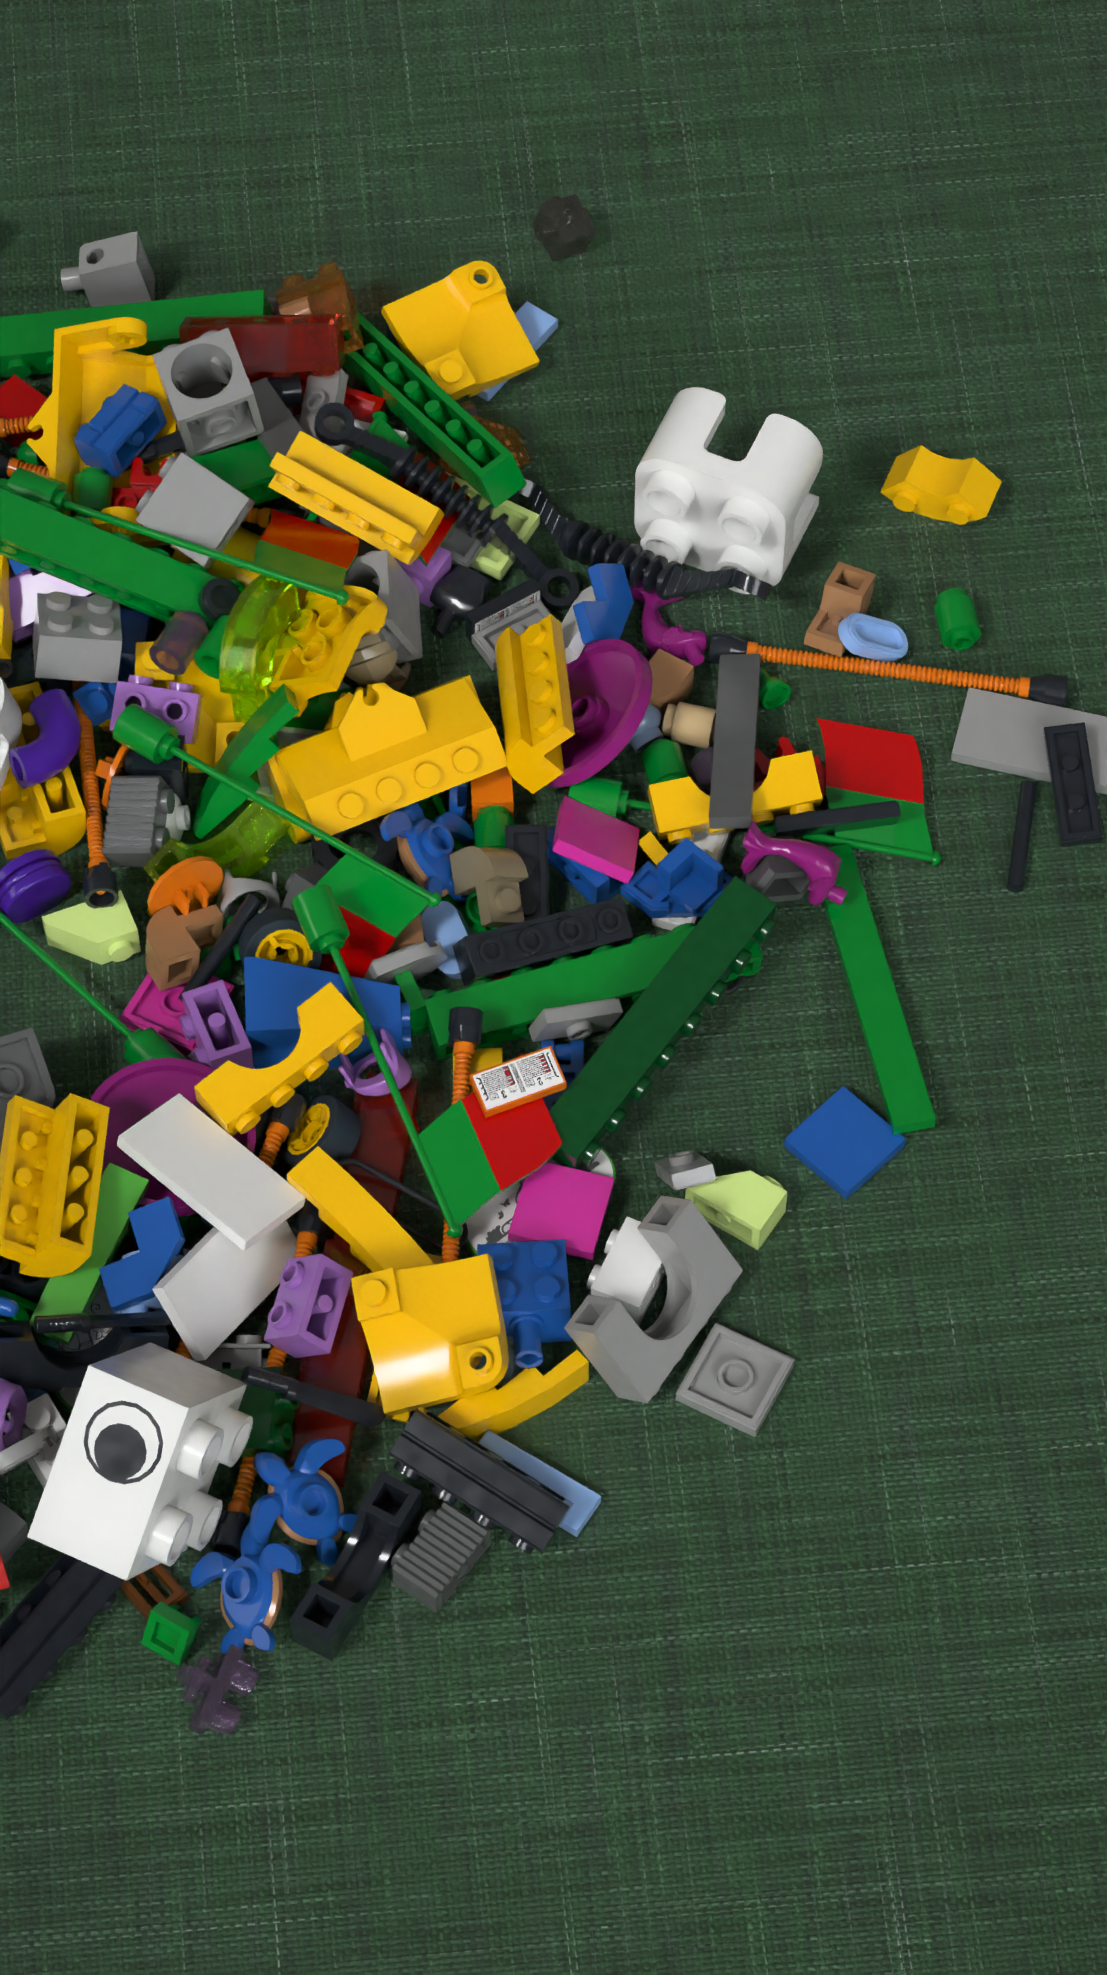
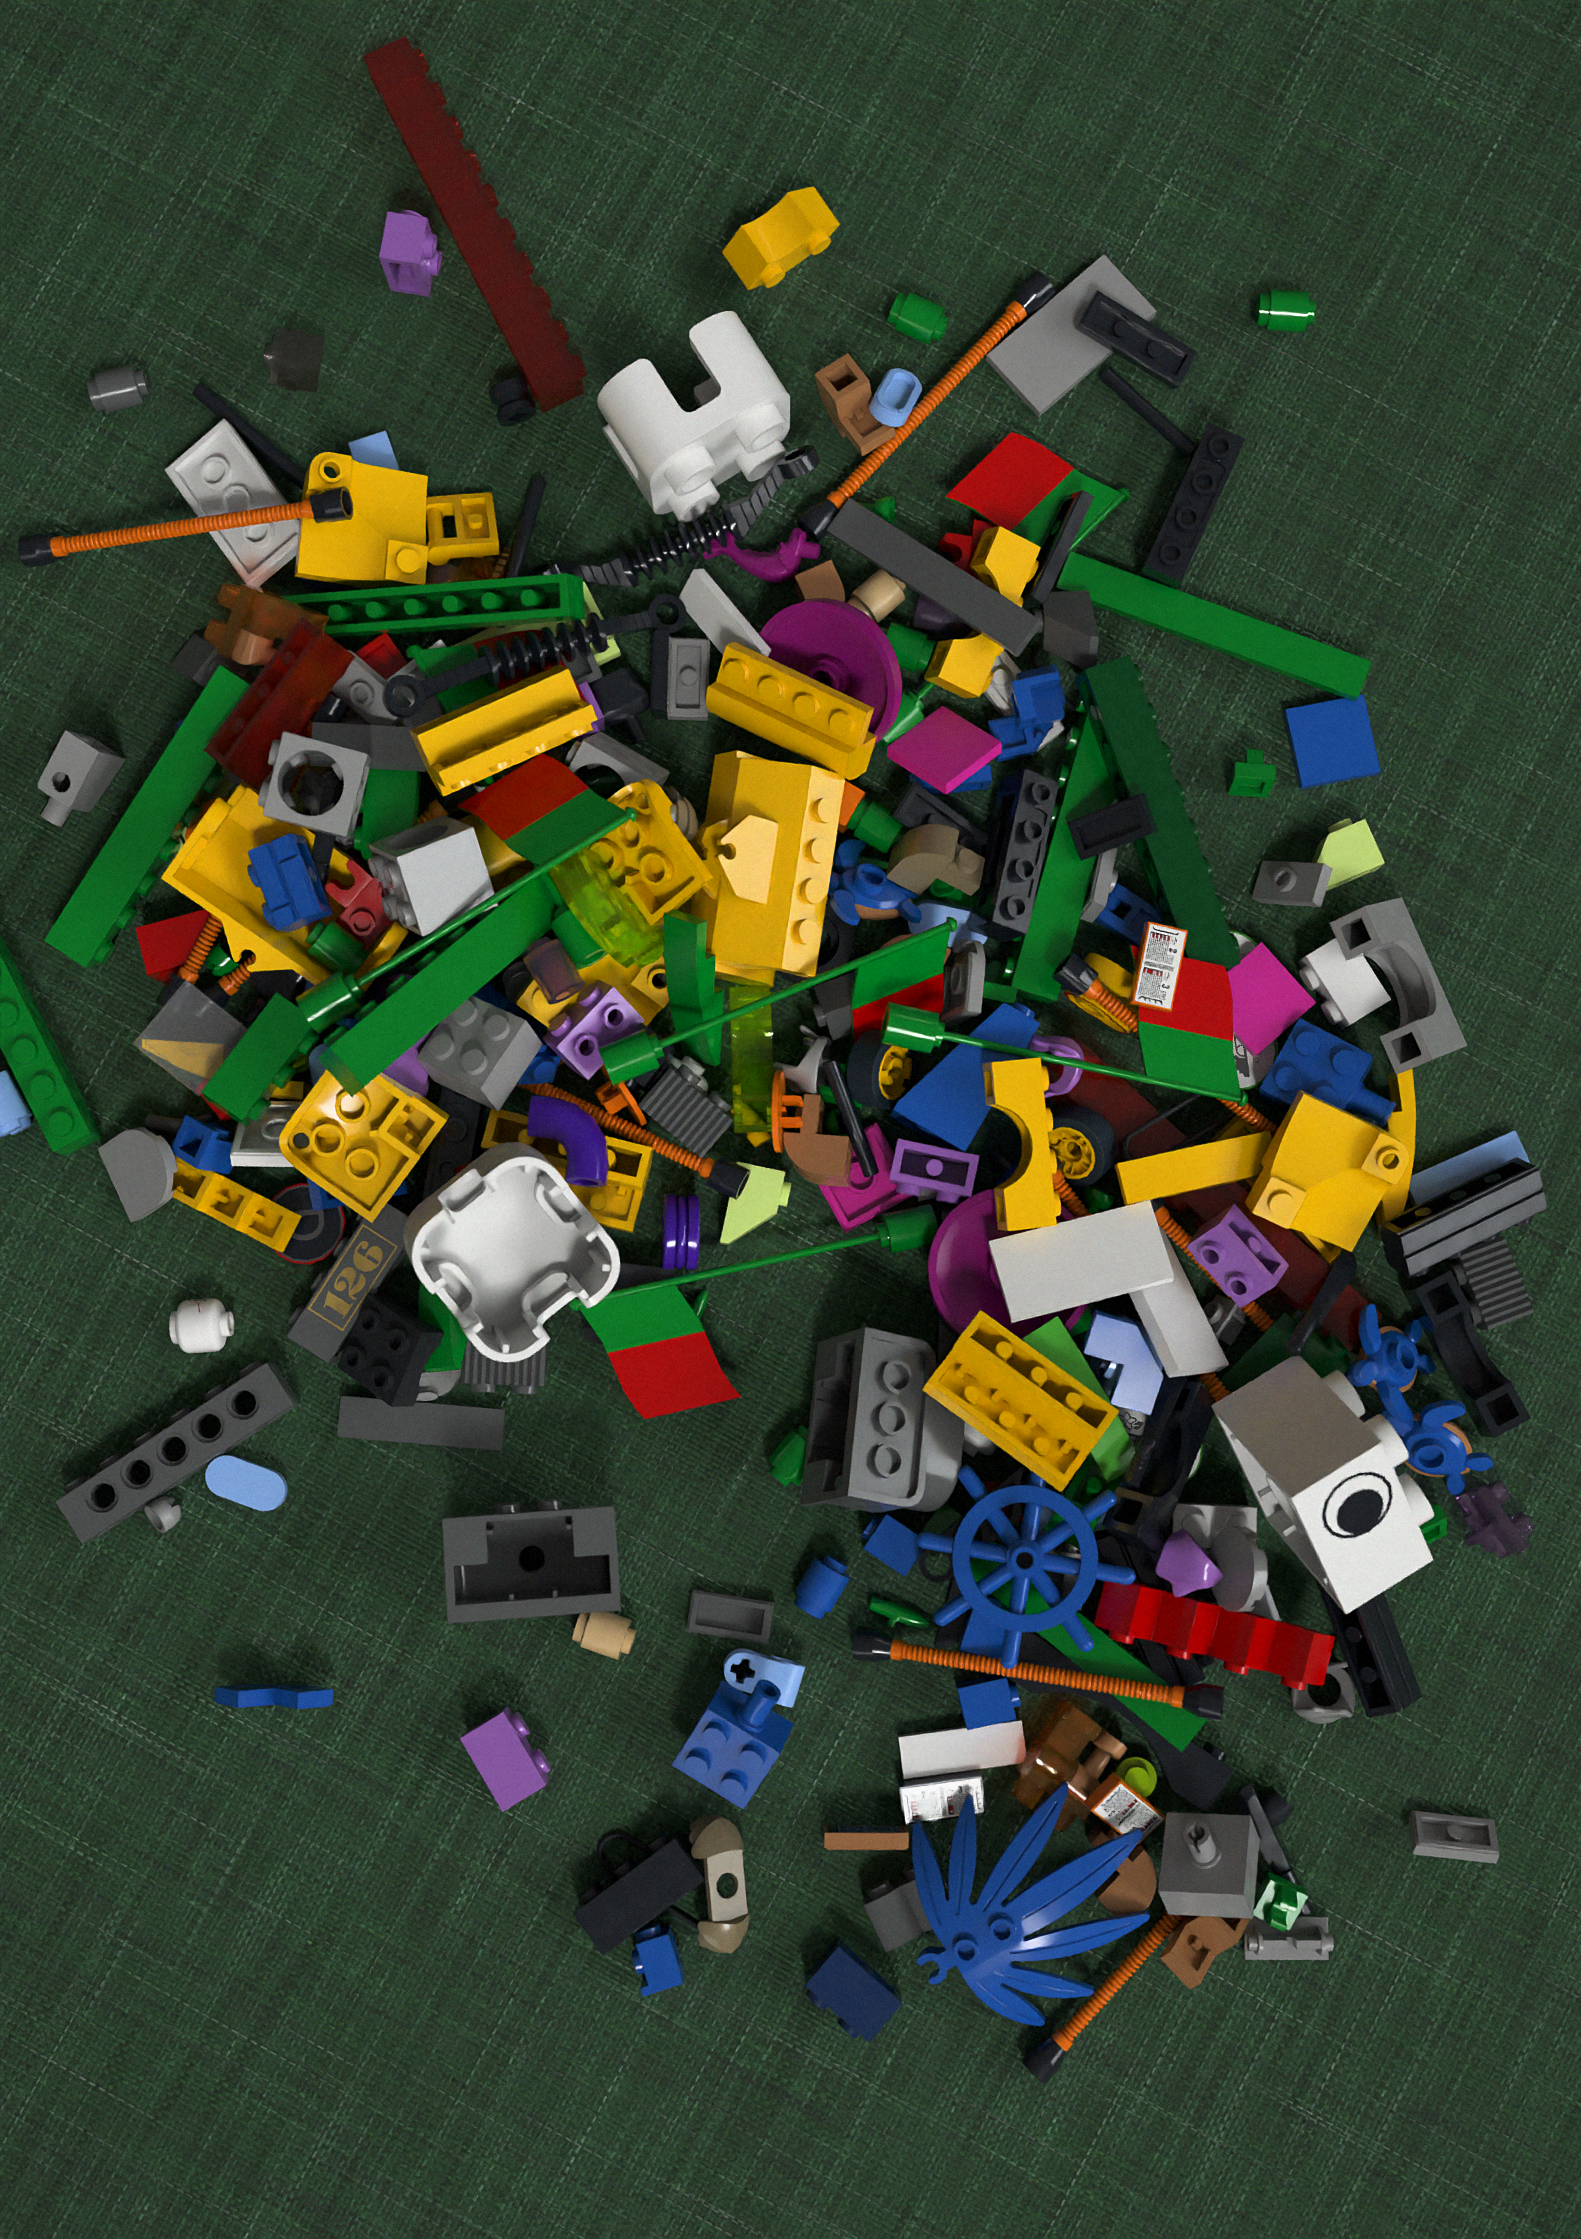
camera: 60 degrees left, 25 degrees up
(218, 598) = (532, 910): black tile -> none
(416, 251) = (225, 477): none -> white tile
(448, 134) = (118, 388): none -> dark grey brick
(449, 289) = (324, 506): none -> orange hose
(485, 225) = (250, 435): none -> black bar
(522, 412) = (473, 523): none -> yellow plate
(554, 454) = (524, 529): none -> black bar
(613, 603) = (741, 602): blue tile -> none
(618, 984) = (1112, 826): none -> black tile
(650, 386) = (512, 402): none -> black wheel
(652, 848) = (977, 708): yellow tile -> none
(709, 246) = (409, 253): none -> medium lavender brick
(735, 1379) = (1478, 963): light grey tile -> none
(760, 1091) = (1251, 776): none -> green tile
(782, 270) = (475, 225): none -> clear red brick
(815, 860) = (1101, 595): magenta animal -> none
(959, 907) = (1192, 507): none -> black brick

